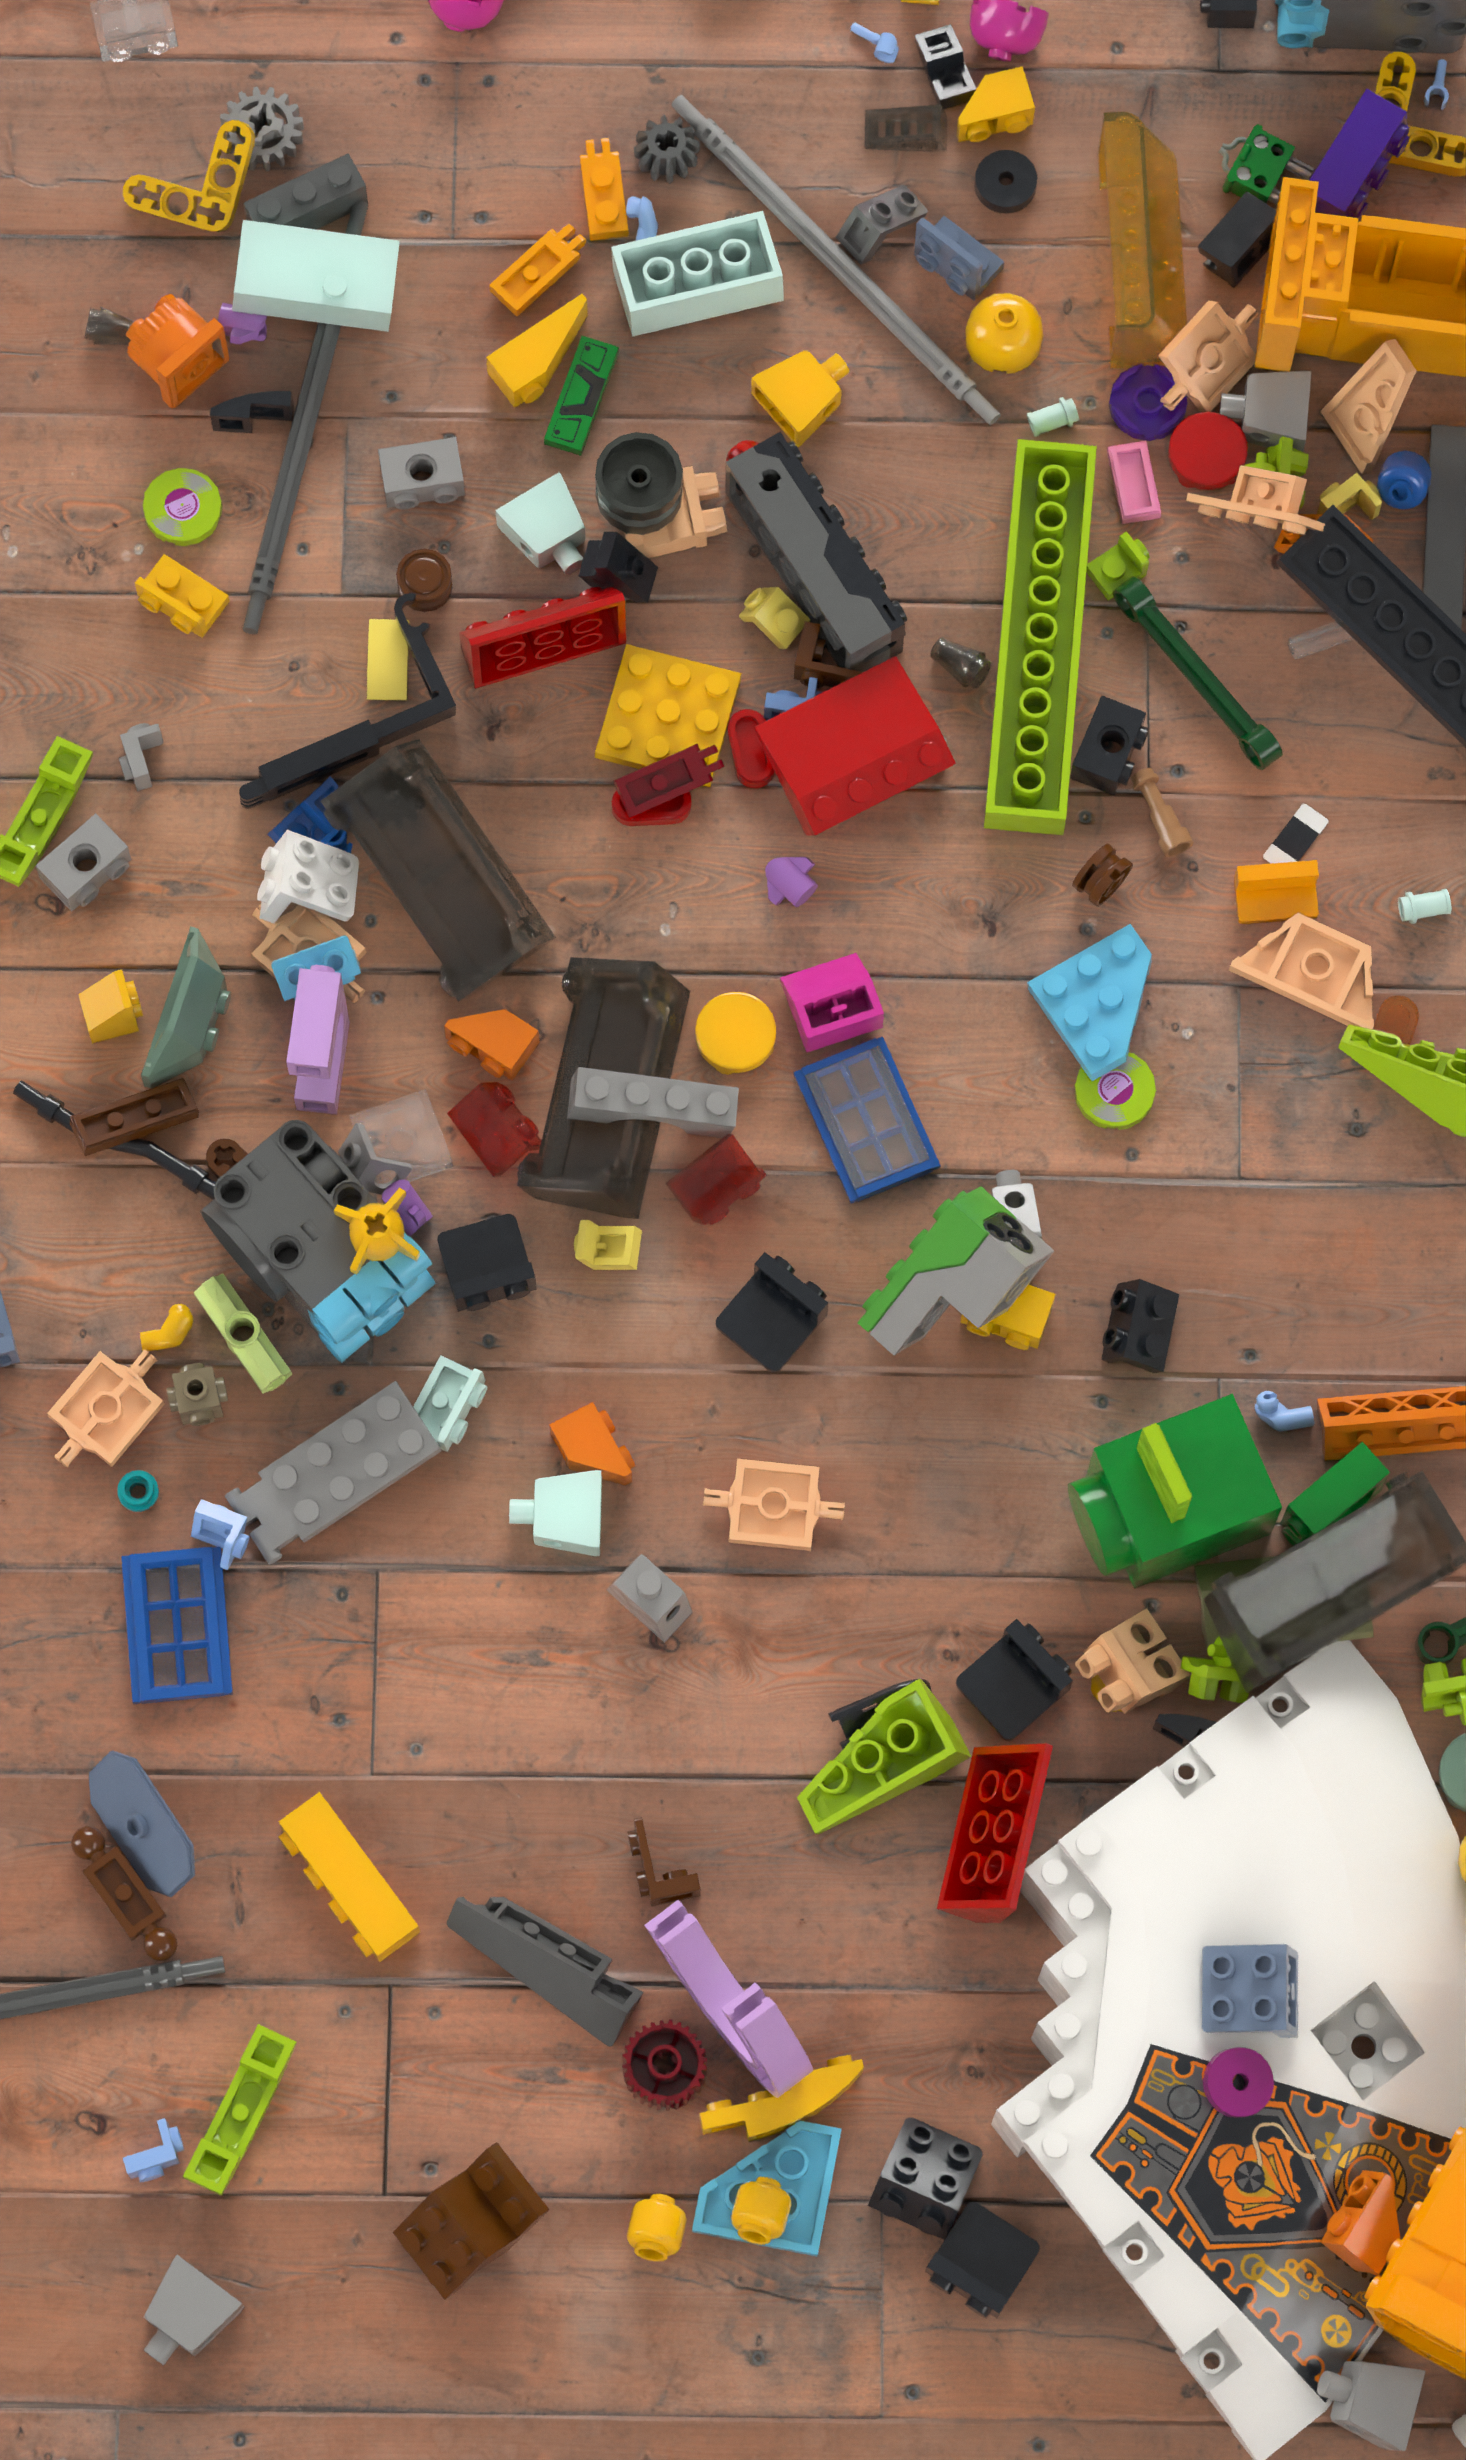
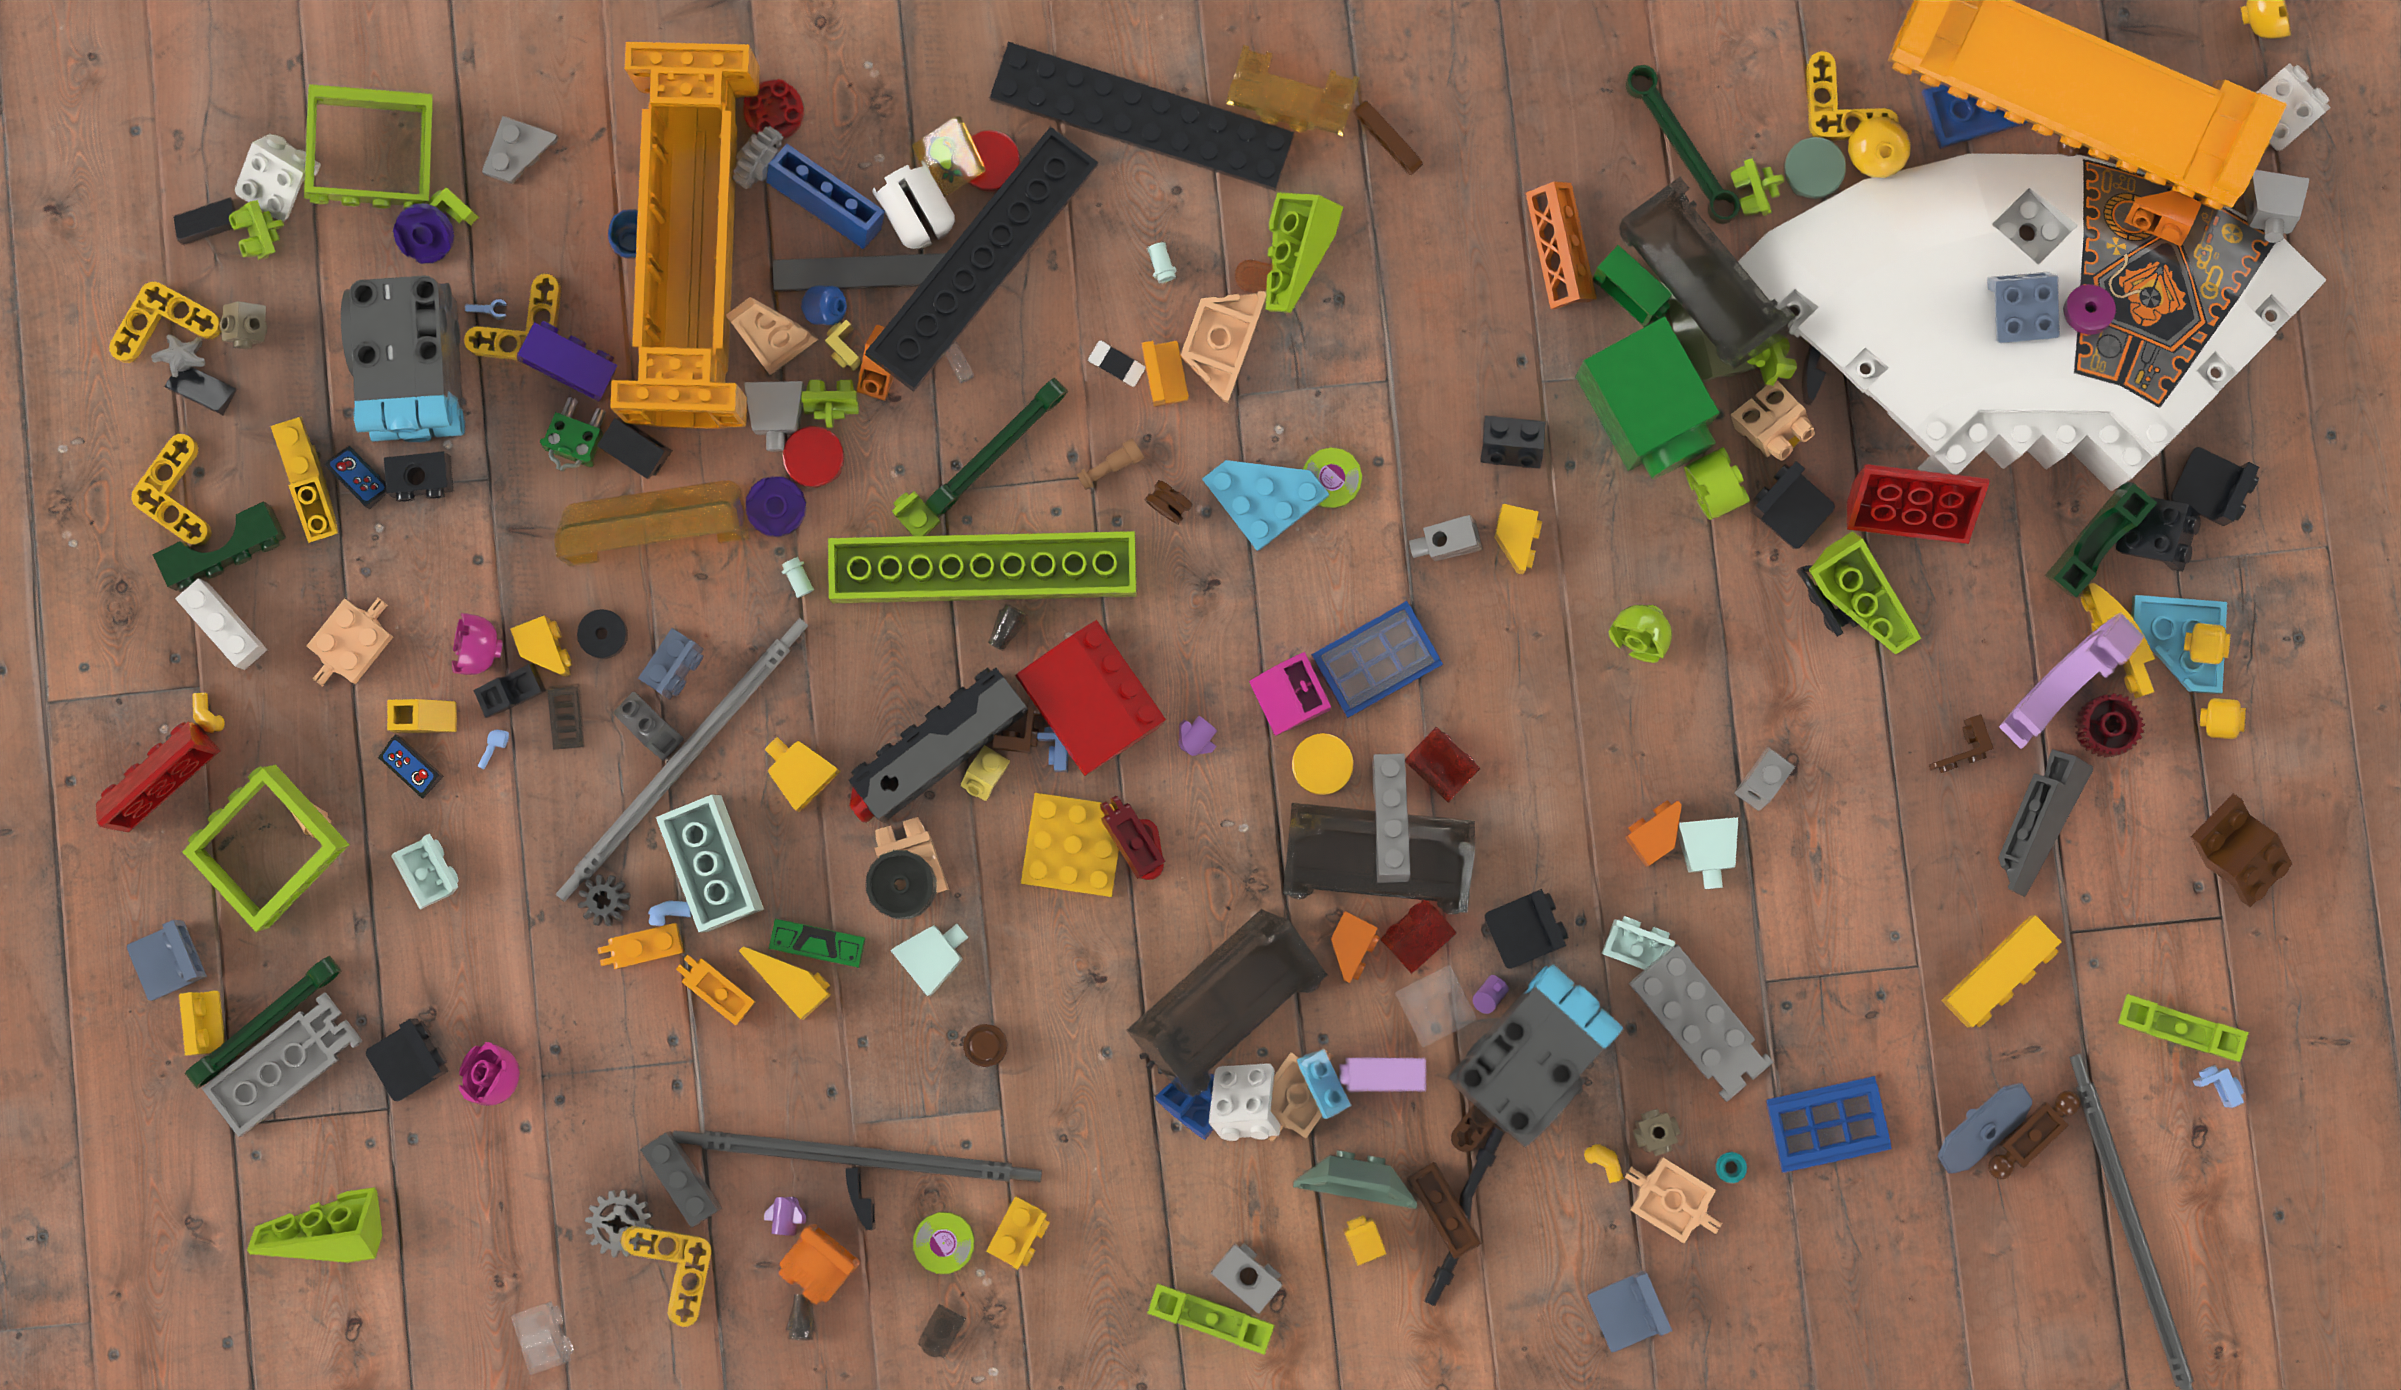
camera: 90 degrees left, 10 degrees up
(71, 489) = (940, 1332): none -> clear smoke bracket
(134, 742) = (1162, 1250): light grey bracket -> none
(187, 2311) = (2329, 1045): light grey torso -> none
(222, 1529) = (1753, 1100): light blue bracket -> none
(228, 1314) = (1588, 1119): yellowish green piece -> none
(315, 275) = (748, 1161): light aqua brick -> none
(360, 740) = (1124, 1075): black hinge -> none
(363, 1163) = (1462, 1032): light grey bracket -> none
(377, 1231) = (1541, 1006): yellow piece -> none
(387, 661) = (1053, 1065): light yellow slope -> none
(437, 457) = (885, 1045): light grey brick -> none
(544, 636) = (1023, 947): red slope -> none
(607, 1246) = (1502, 839): light yellow bracket -> none
(618, 565) = (962, 896): black brick -> none
(748, 754) = (1100, 780): red tile -> none
(773, 1313) = (1539, 712): black bracket -> none
(774, 1504) = (1682, 694): light nougat plate -> none
(865, 1459) = (1643, 631): none -> lime cylinder
(923, 2083) = (2117, 517): none -> dark green arch
(969, 1258) = (1499, 565): piece -> none
(1004, 333) = (731, 622): yellow cylinder -> none
(1053, 1576) = (1716, 484): none -> lime brick
(1113, 723) = (1076, 520): black brick -> none
(1133, 482) = (843, 511): bright pink tile -> none
(1164, 1472) = (1661, 399): lime tile -> none
(1208, 356) = (739, 461): light nougat plate -> none
(1264, 496) = (860, 405): light nougat bracket -> none
(1278, 1416) = (1568, 334): light blue arm -> none

